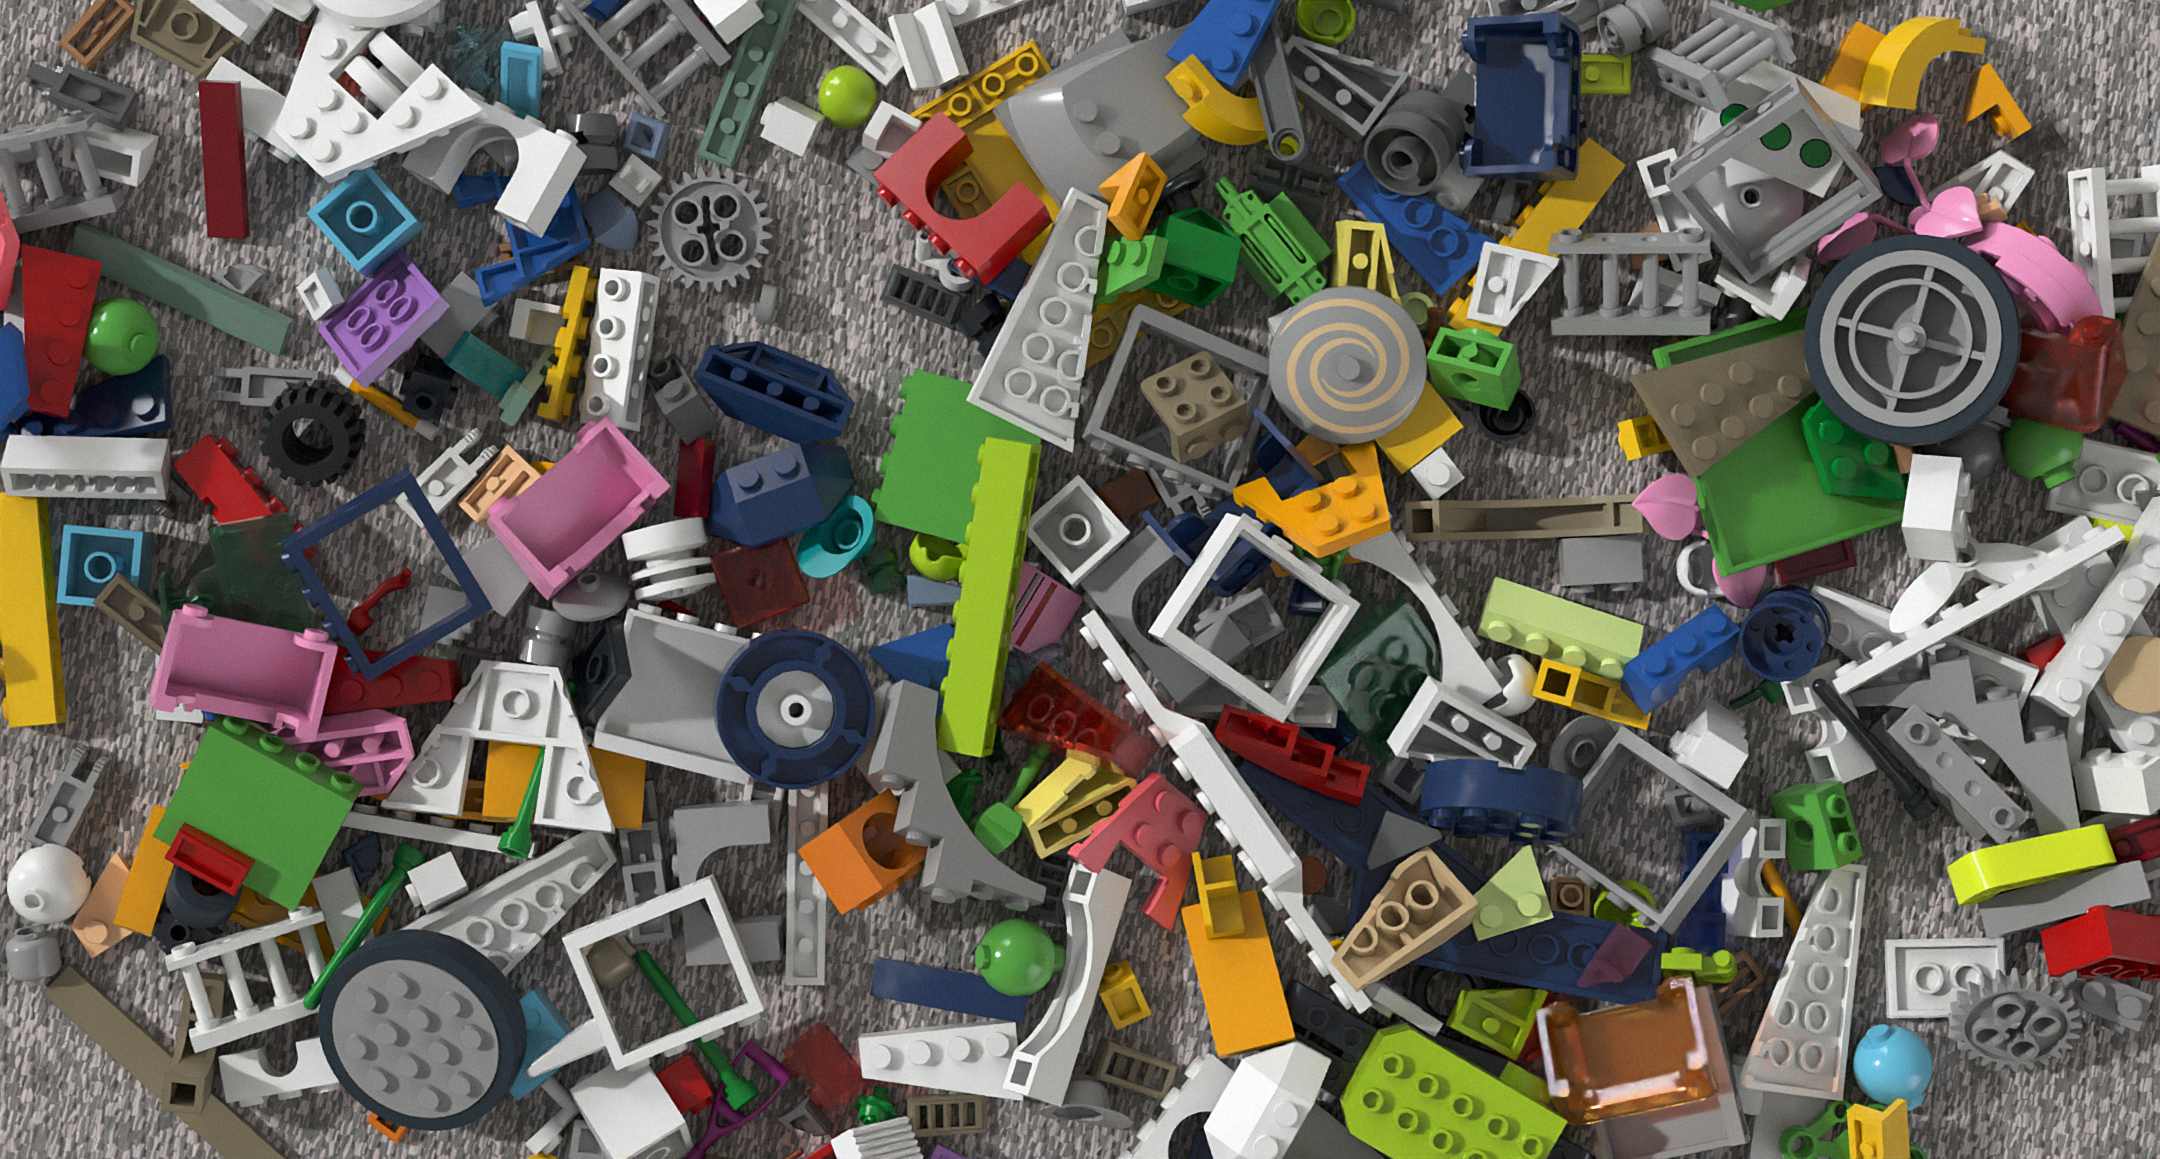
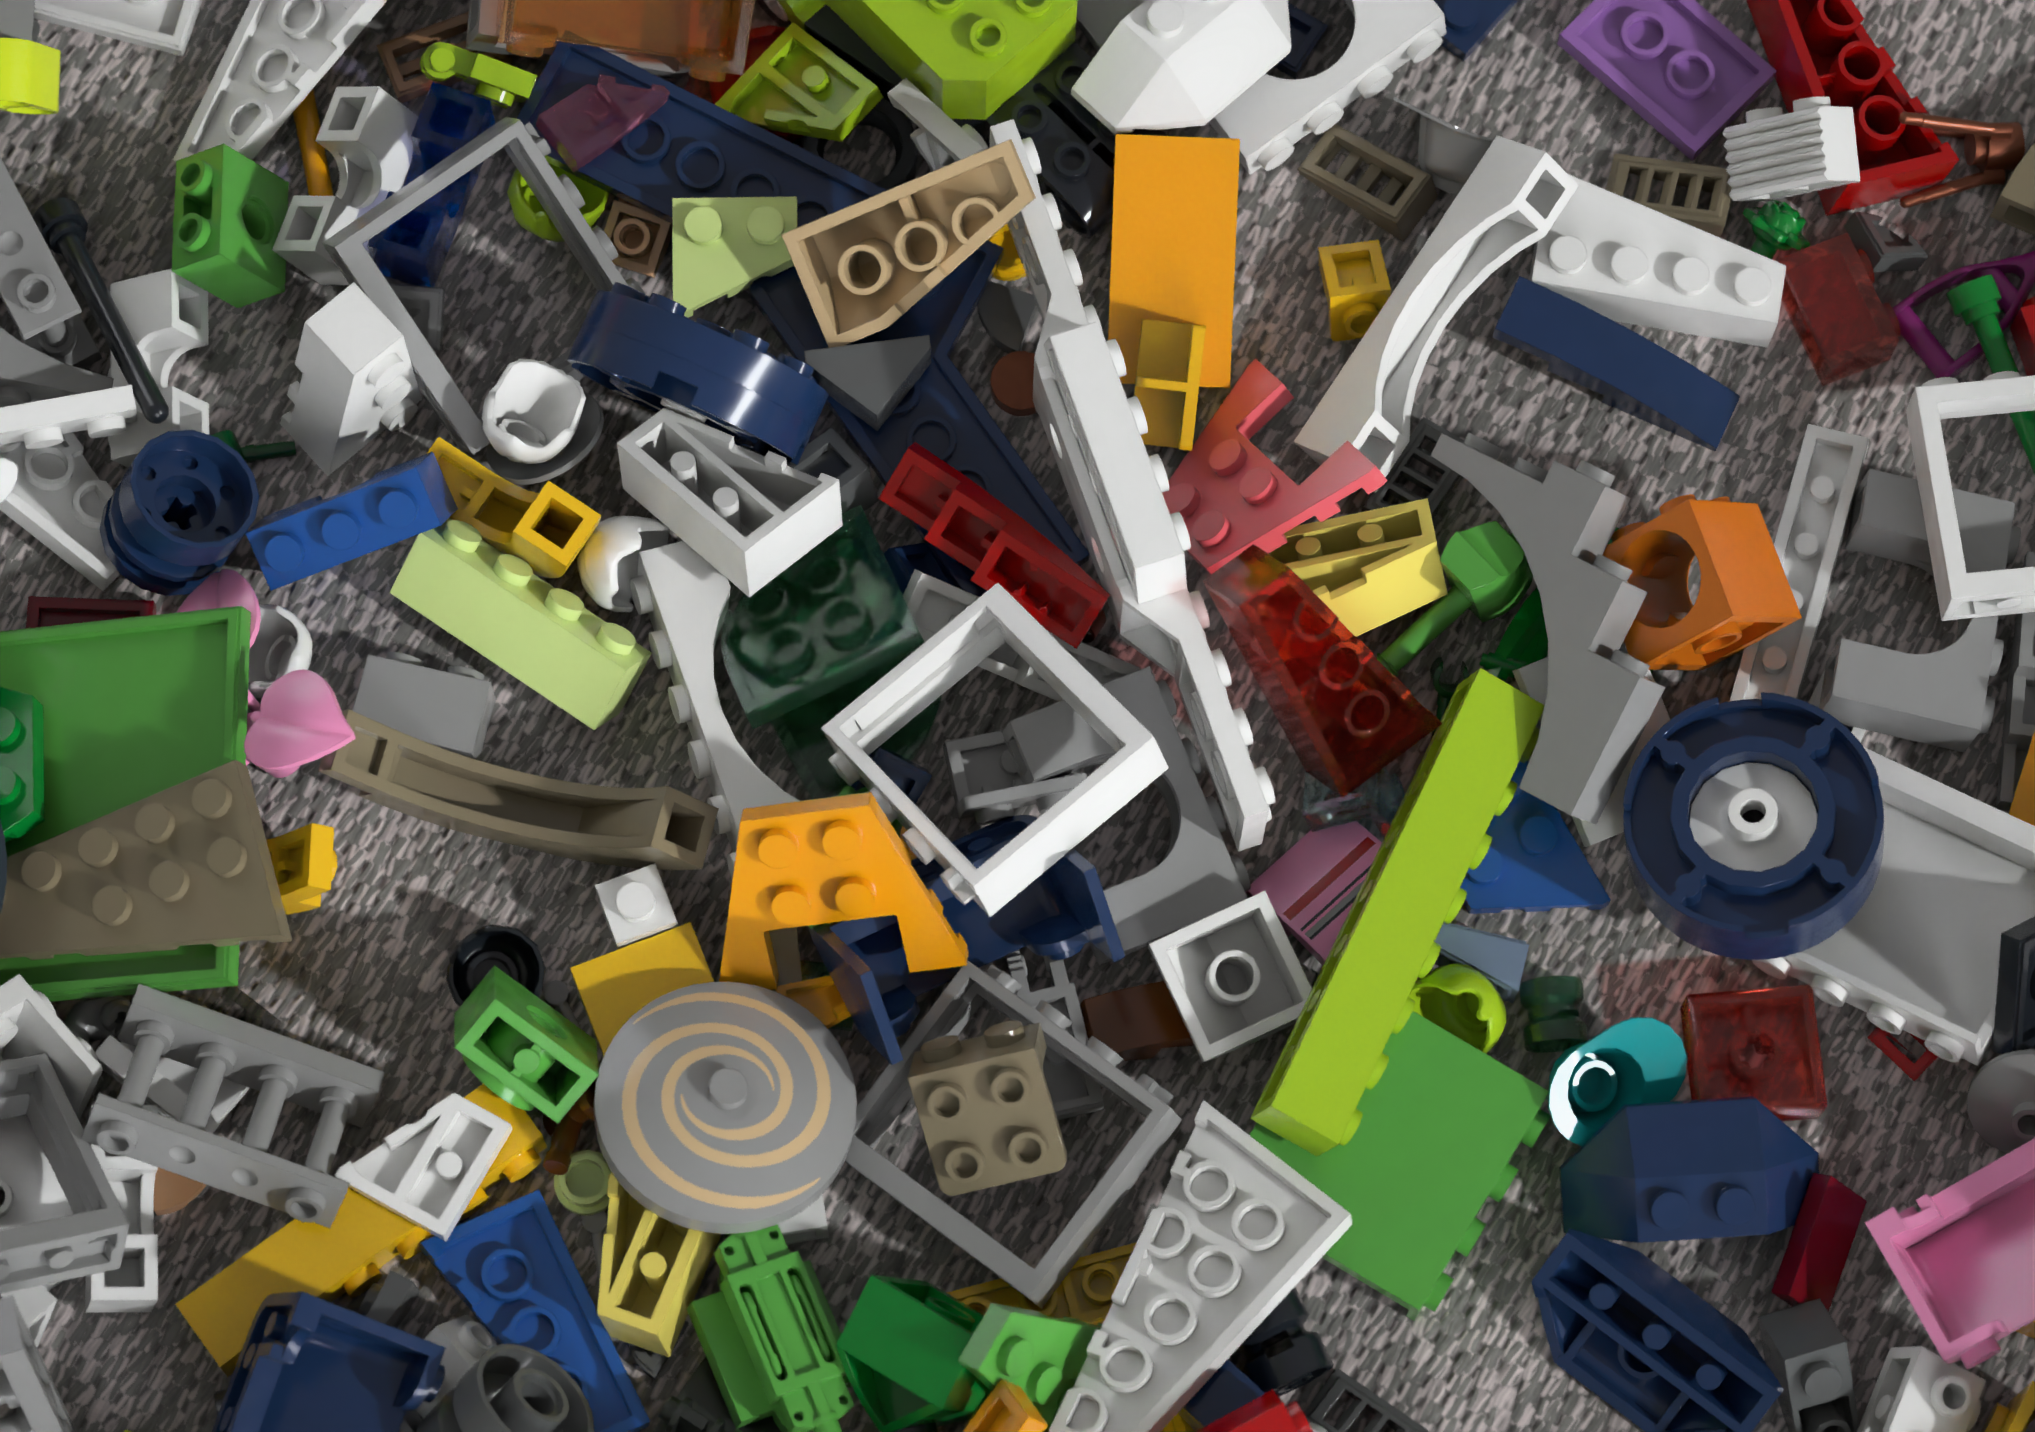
camera: 165 degrees left, 15 degrees down
(669, 559) = (1894, 1108): white wheel -> none
(1018, 957) = (1499, 376): bright green brick -> none
(1595, 755) = (532, 411): none -> white hair

